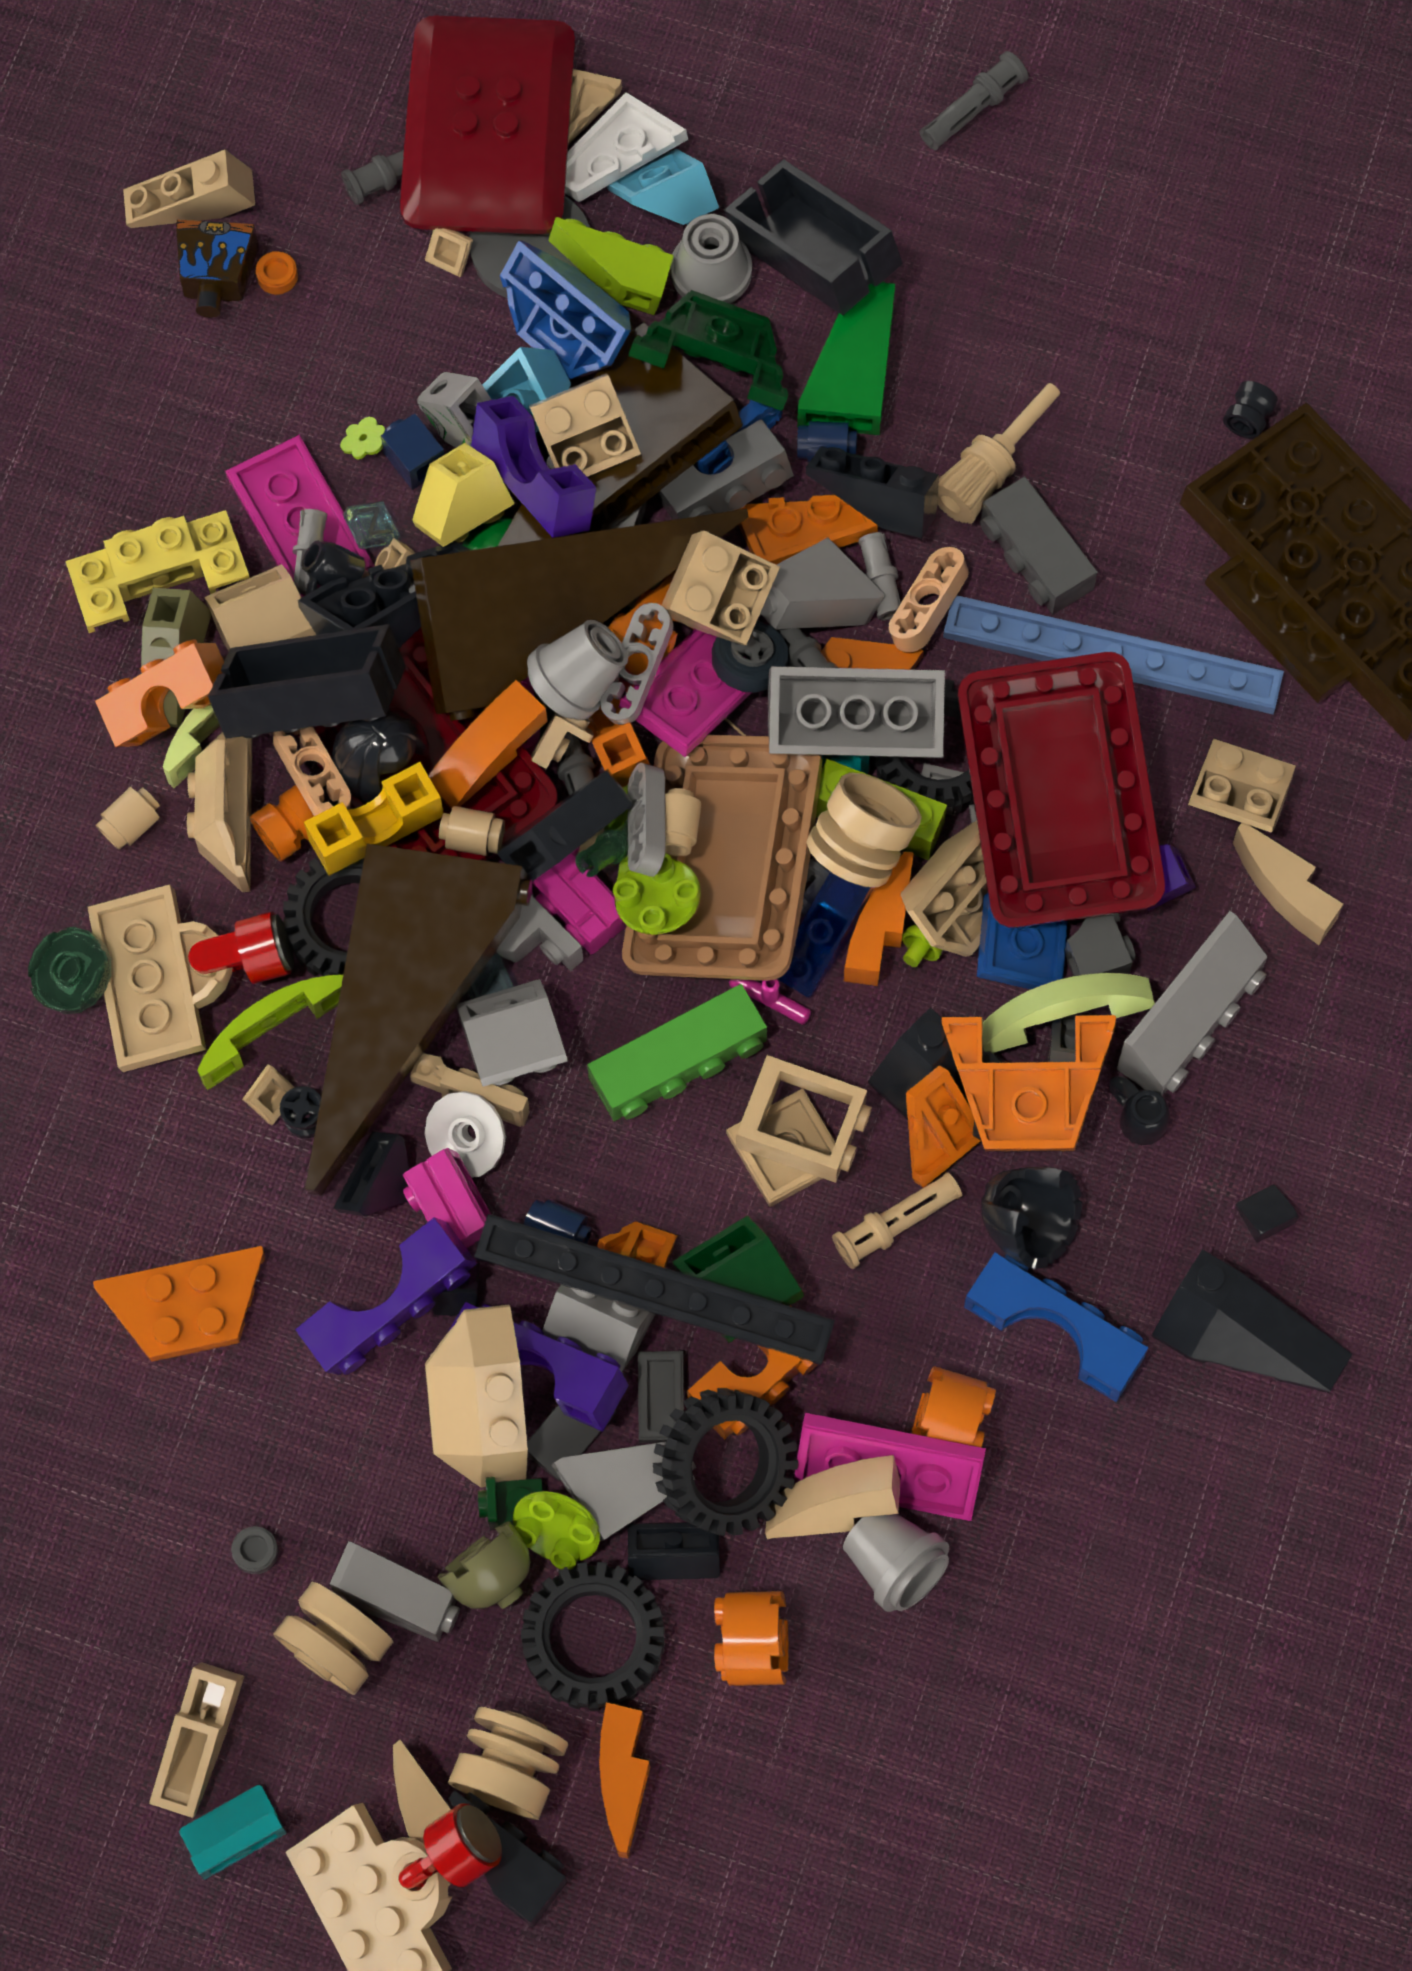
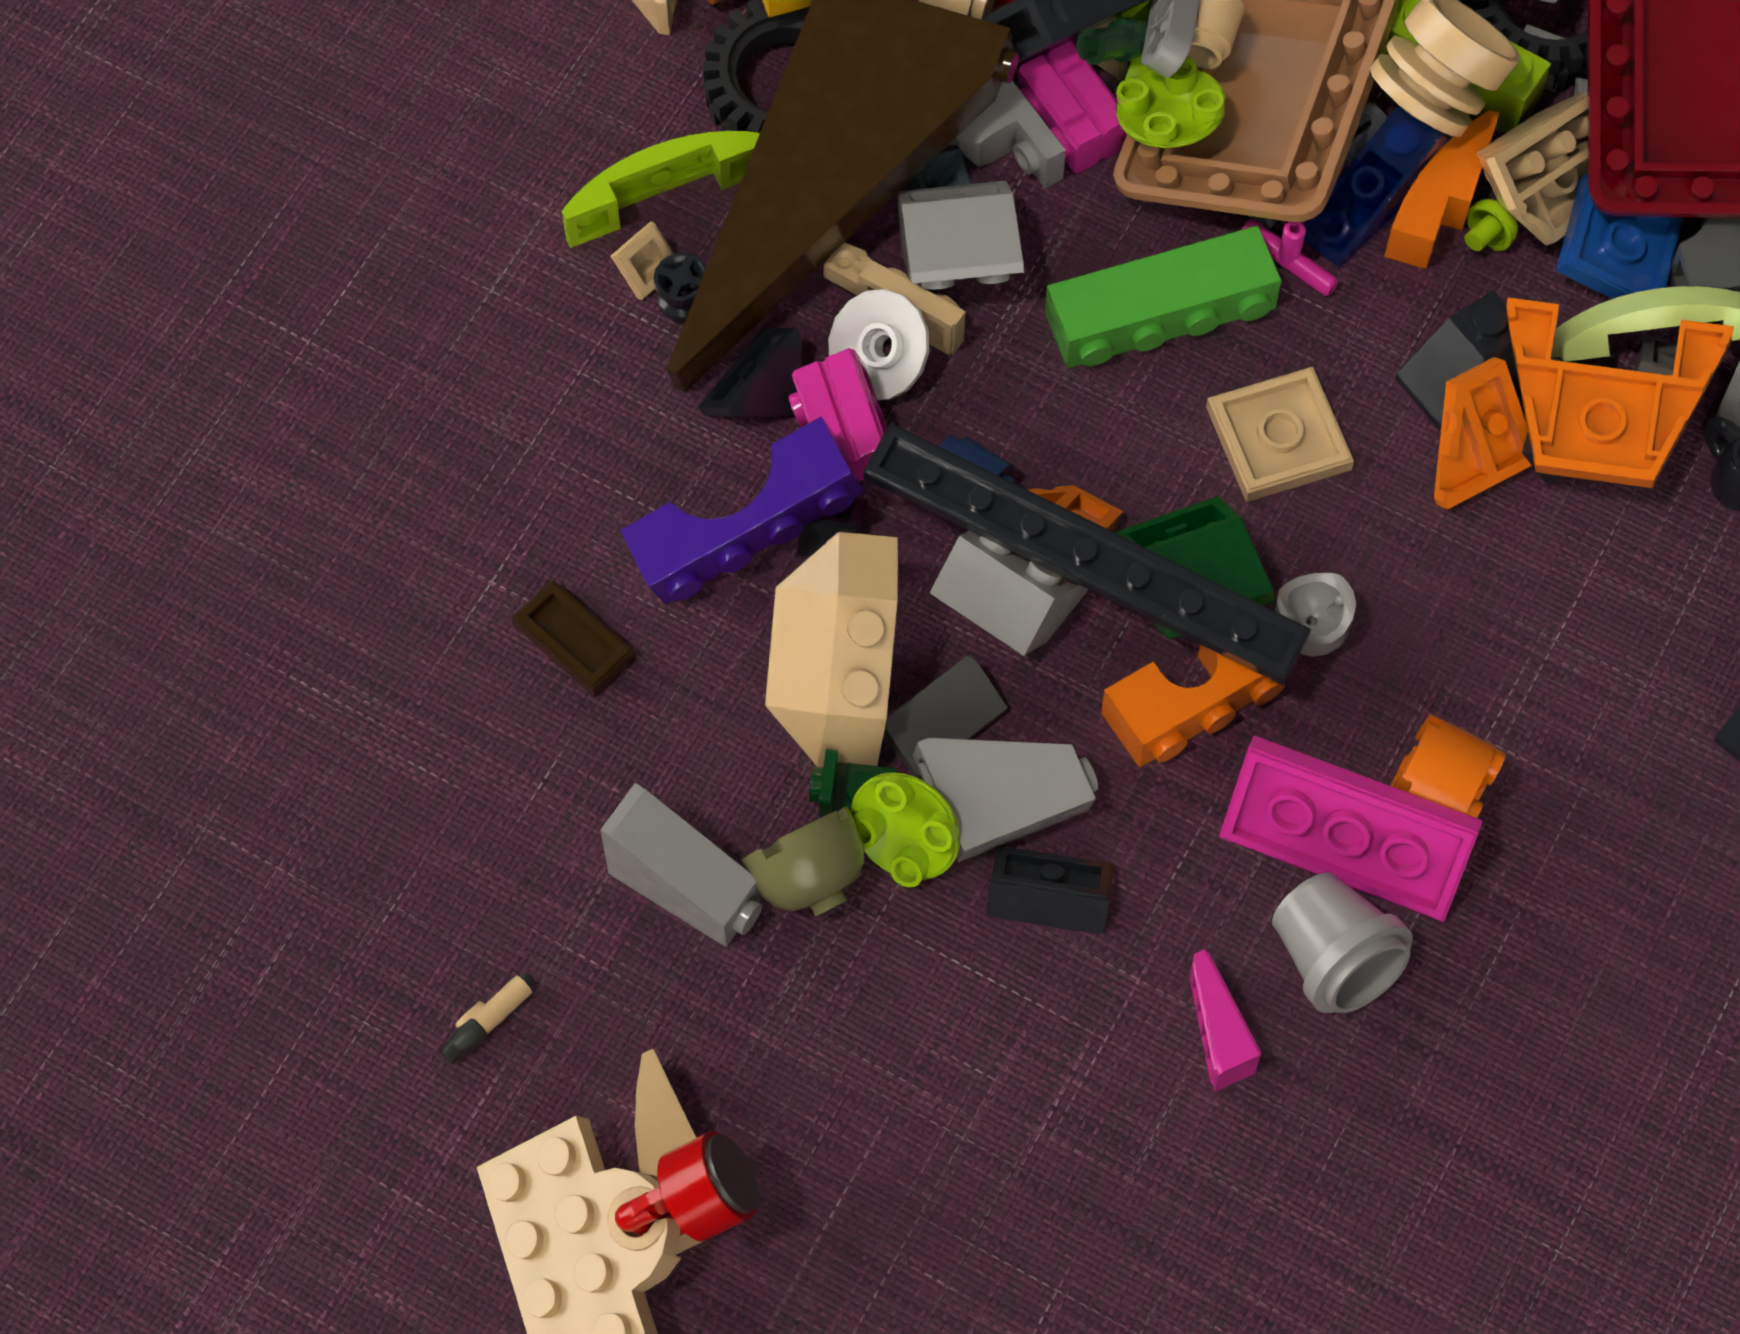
camera: 10 degrees right, 5 degrees down
(69, 970) = (431, 80): clear green tile -> none
(173, 969) = (545, 97): tan plate -> none
(185, 1303) = (491, 485): orange wing -> none
(196, 1739) = (391, 1005): tan slope -> none
(232, 1832) = (413, 1131): teal panel -> none
(255, 1550) = (515, 791): dark grey tile -> none
(268, 1733) = (483, 1018): none -> piece
(274, 1417) = (573, 638): none -> dark brown tile
(337, 1632) = (592, 906): tan wheel -> none
(508, 1762) = (788, 1104): tan wheel -> none
(522, 1879) = (776, 1255): black slope -> none
(584, 1384) = (974, 654): dark purple arch -> none
(591, 1581) = (930, 905): black tyre -> none
(621, 1773) = (934, 1148): orange slope -> none
(658, 1392) = (1068, 695): dark grey tile -> none
(753, 1638) = (1134, 1008): orange brick -> none
(754, 1141) = (1287, 434): tan window -> none
(769, 1477) = (1200, 792): black tyre -> none
(823, 1645) = (1226, 1039): none -> dark pink slope
(836, 1294) = (1320, 603): none -> light grey piece
(837, 1498) = (1273, 854): tan slope -> none
(875, 1227) = (1384, 546): tan pin -> none
(1010, 1294) = (1541, 653): blue arch -> none
(1032, 1213) = (1585, 556): black hair -> none

